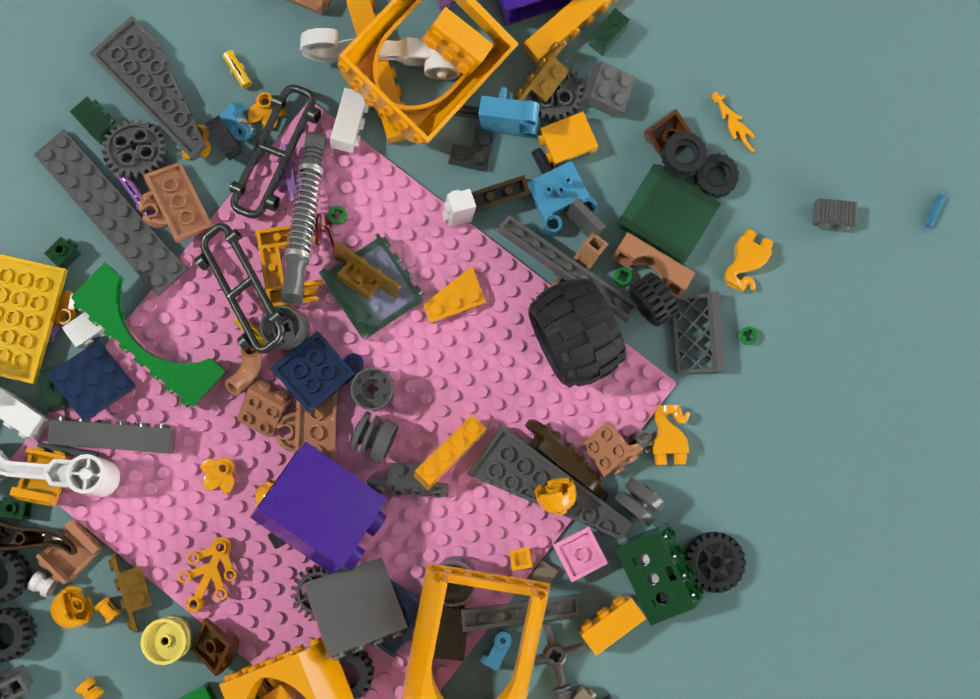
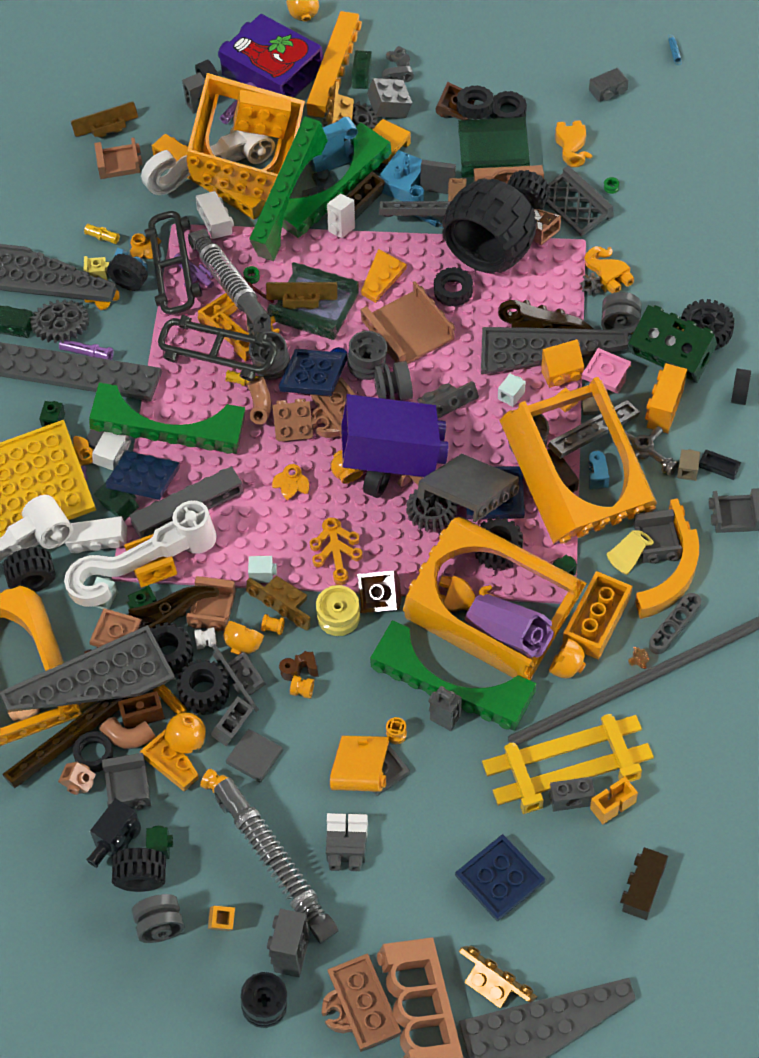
camera: 30 degrees left, 25 degrees down
(47, 644) = (244, 674): none -> dark grey bracket
(94, 664) = (293, 667): none -> reddish brown leg
(130, 552) = (261, 568): none -> light aqua brick
(174, 203) = (119, 334): nougat plate -> none
(198, 106) = (96, 267): none -> light yellow brick
(374, 186) = (307, 144): none -> green arch
(438, 374) = (410, 325): none -> nougat panel
(449, 452) = (457, 359): light orange brick -> none
(480, 514) = (511, 389): none -> light aqua brick
(517, 345) = (453, 275): none -> black tyre
(536, 149) = (369, 153): none -> green arch
(542, 524) = (562, 363): none -> light orange slope
(556, 496) = (559, 334): light orange cylinder -> none
(610, 450) = (573, 295): nougat bracket -> none
(640, 61) = (399, 73): none -> dark grey beam
(641, 341) = (547, 226): none -> nougat torso
(656, 39) = (399, 56): none -> dark grey plate
(689, 658) = (741, 386): none -> black tyre
(733, 125) = (493, 74): light orange piece -> none

